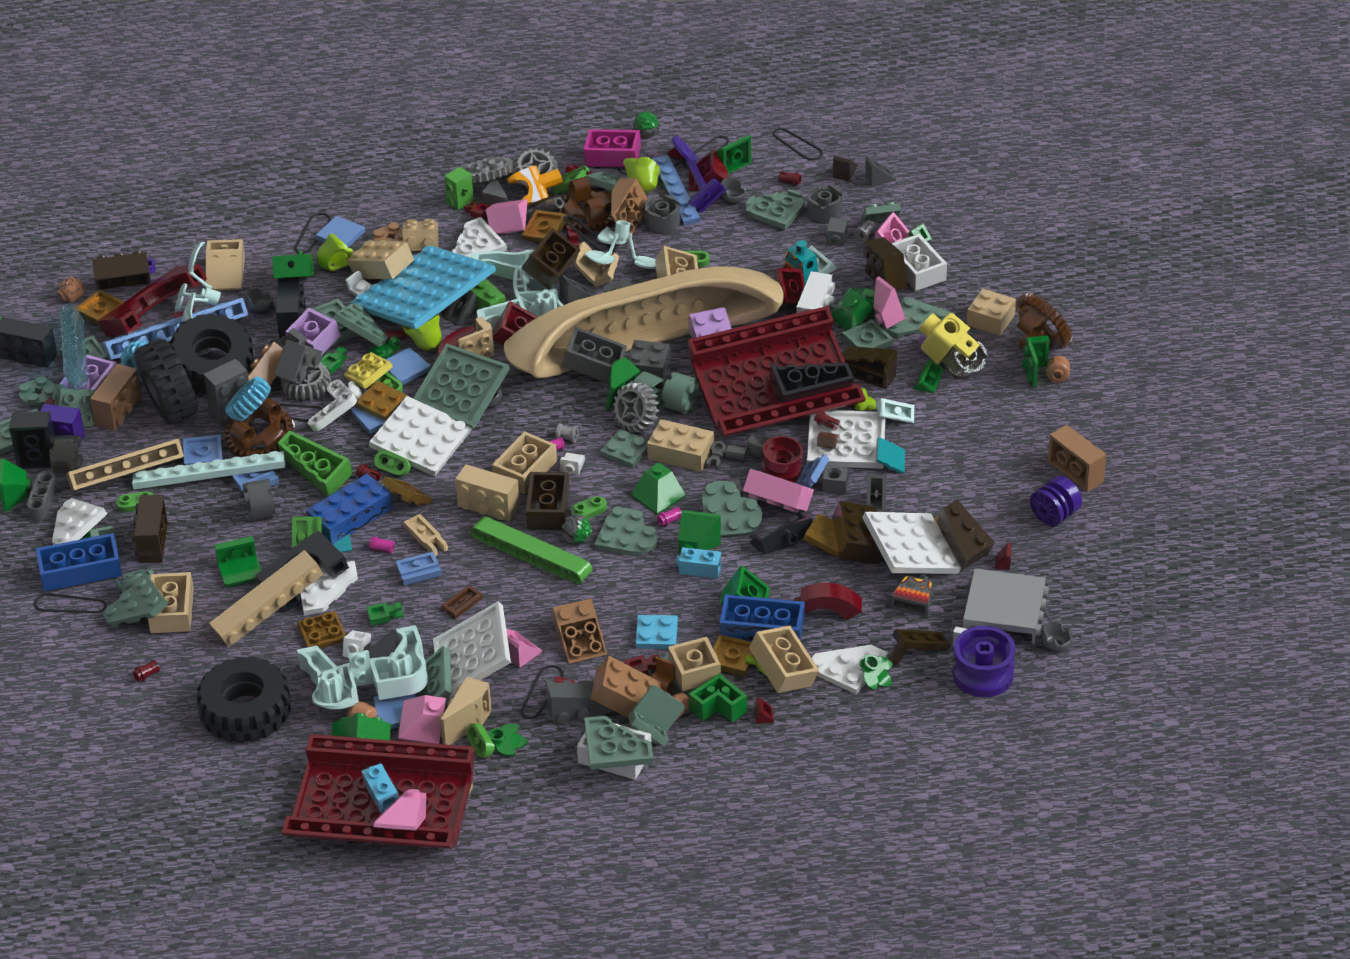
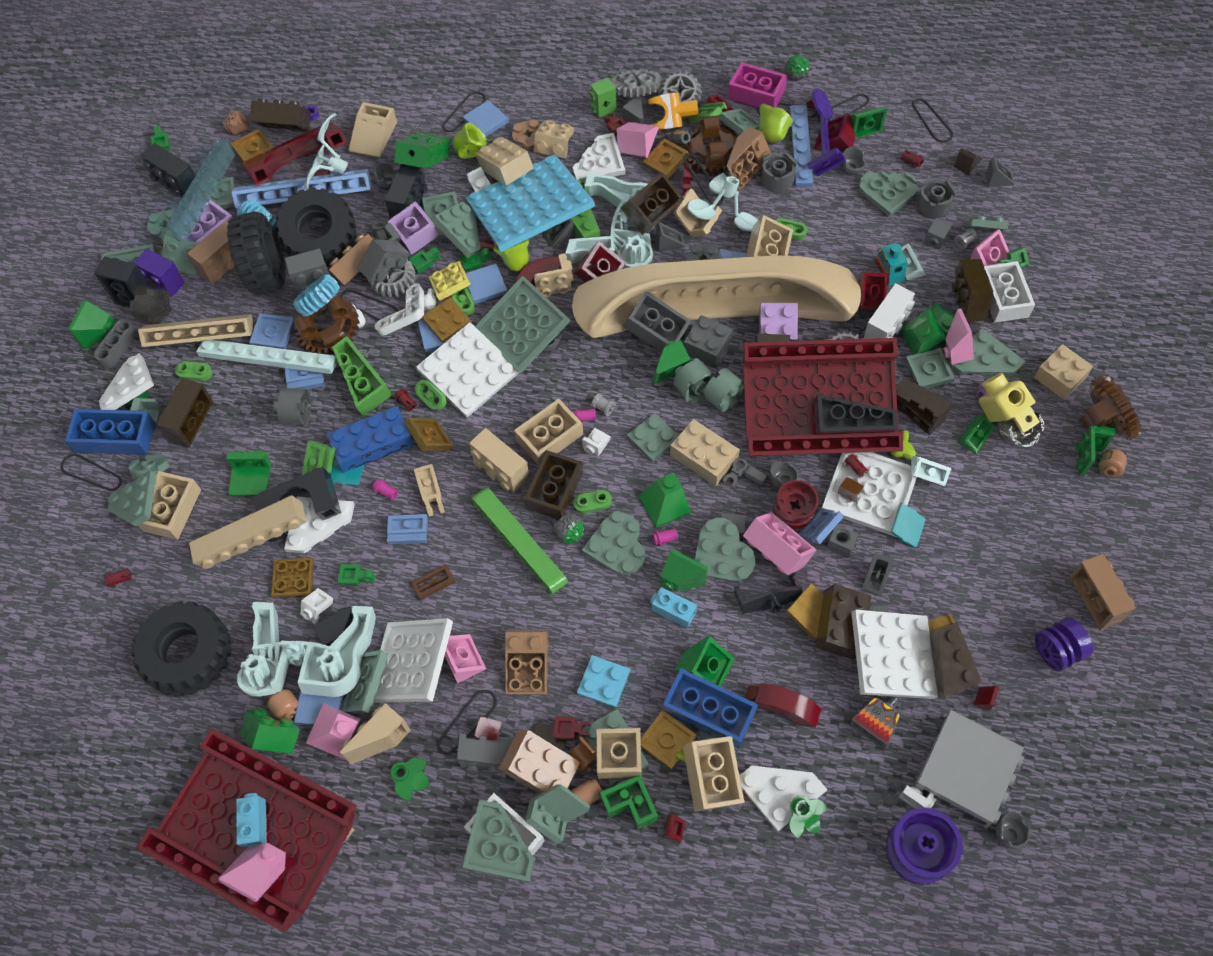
camera: 20 degrees right, 20 degrees up
(480, 740) = (381, 765): bright green plate -> none
(629, 408) = (674, 398): light grey gear -> none
(916, 640) = (861, 791): dark brown piece -> none

